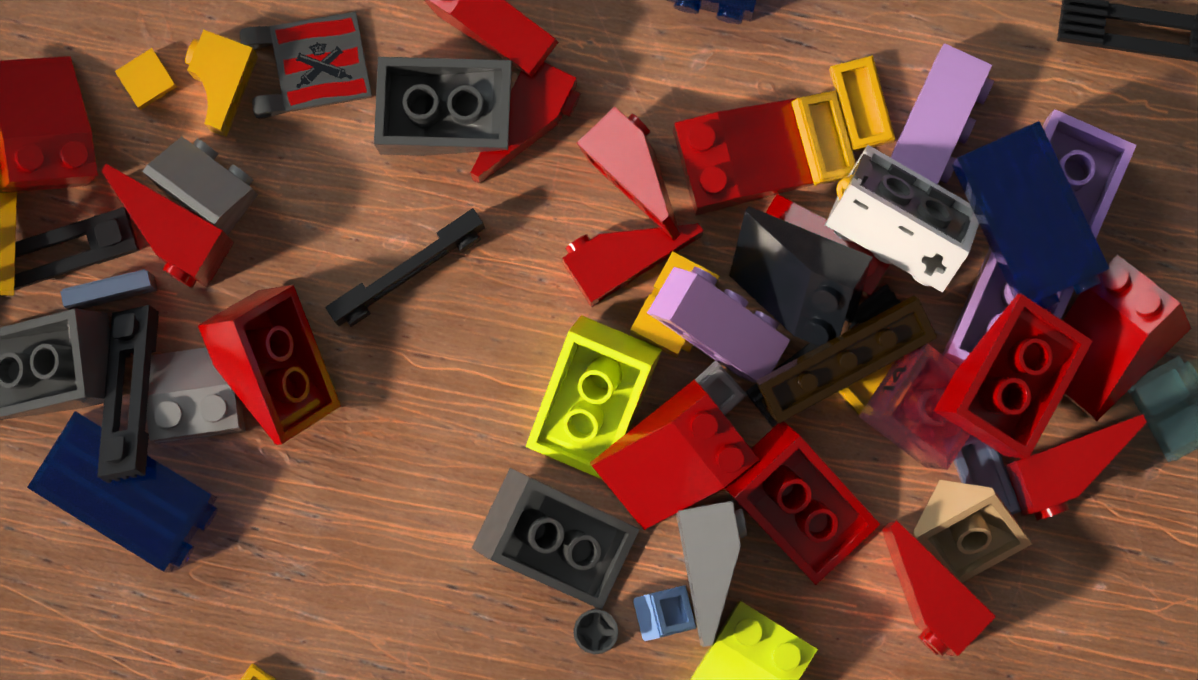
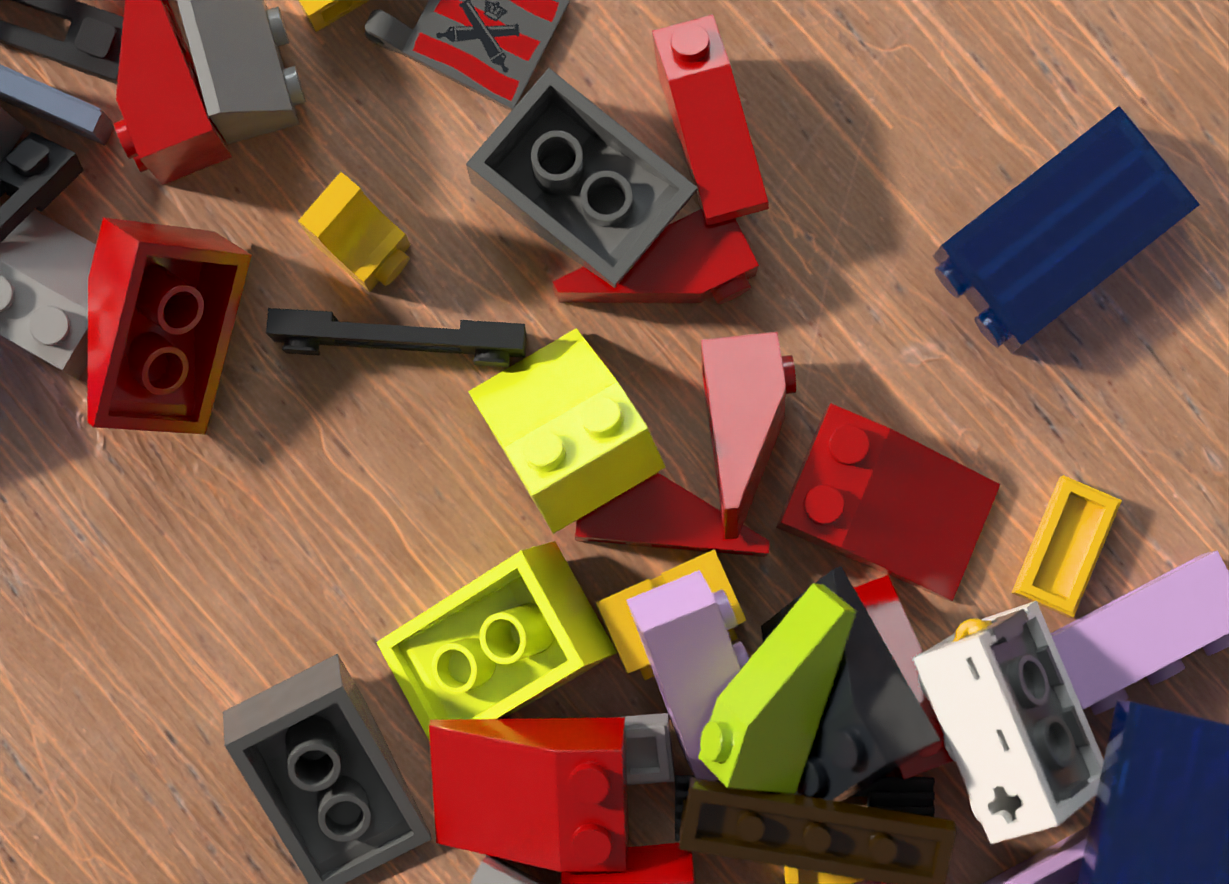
camera: 35 degrees right, 0 degrees up
(342, 230) = (356, 234): none -> yellow arch
(541, 246) = (567, 429): none -> neon yellow slope
(769, 303) = (778, 697): none -> lime slope
(824, 137) = (993, 552): yellow tile -> none

